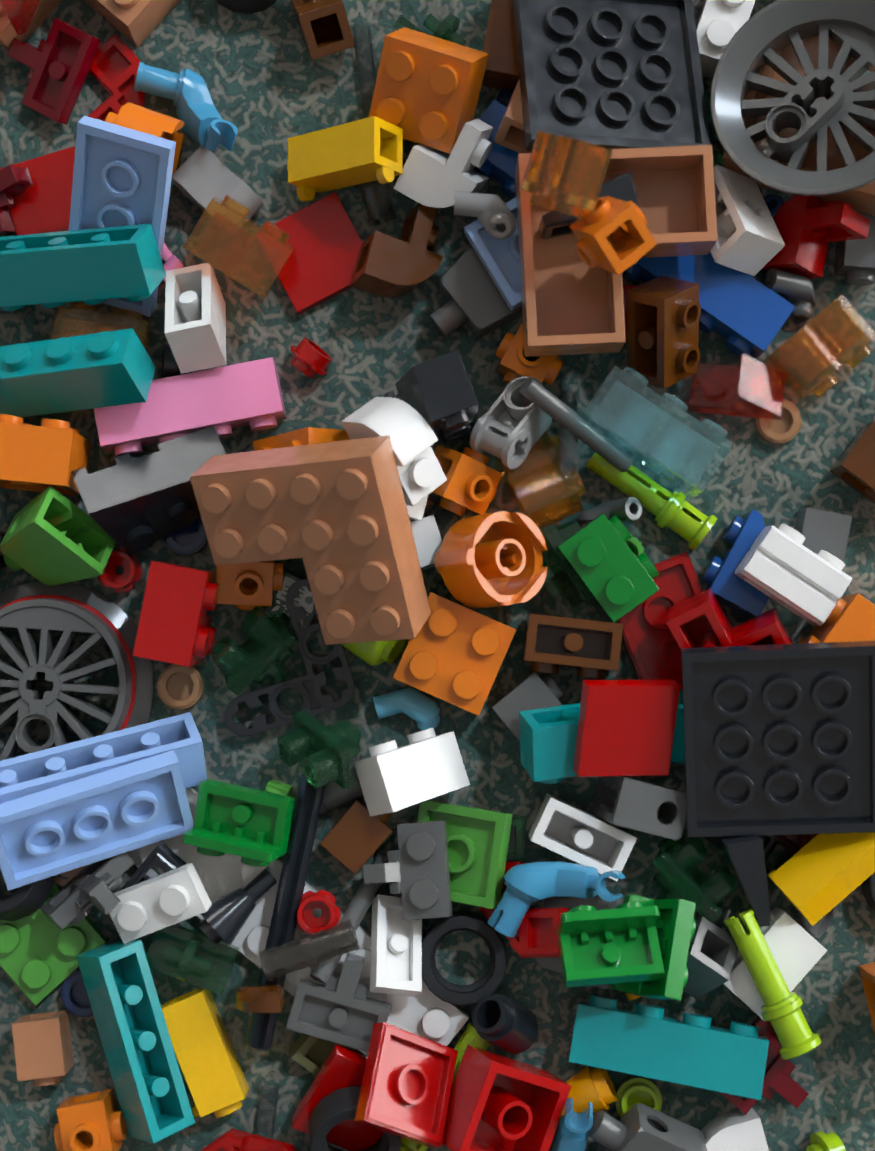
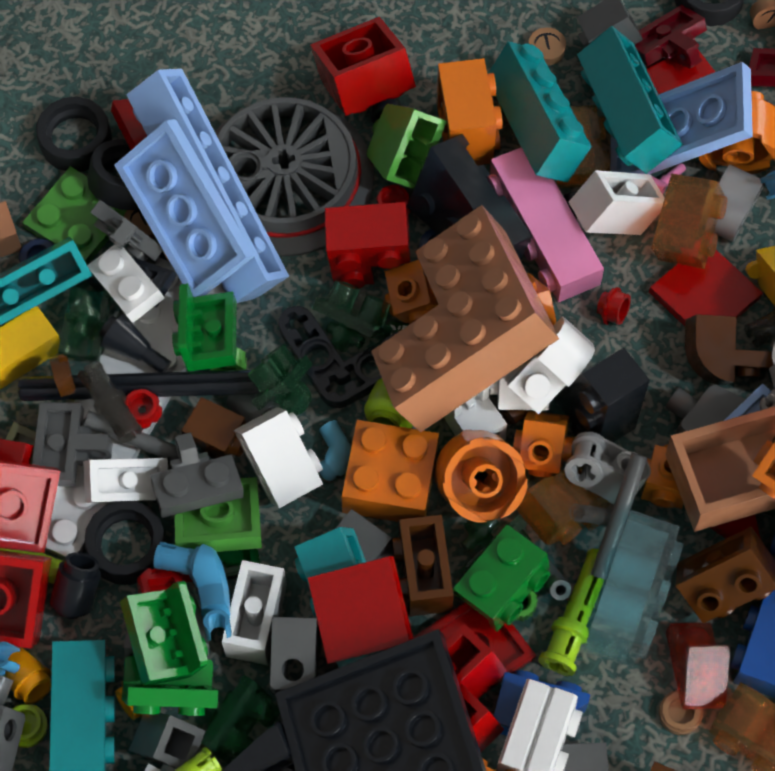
camera: 80 degrees right, 20 degrees down
(180, 686) = (309, 271): medium nougat tile -> none

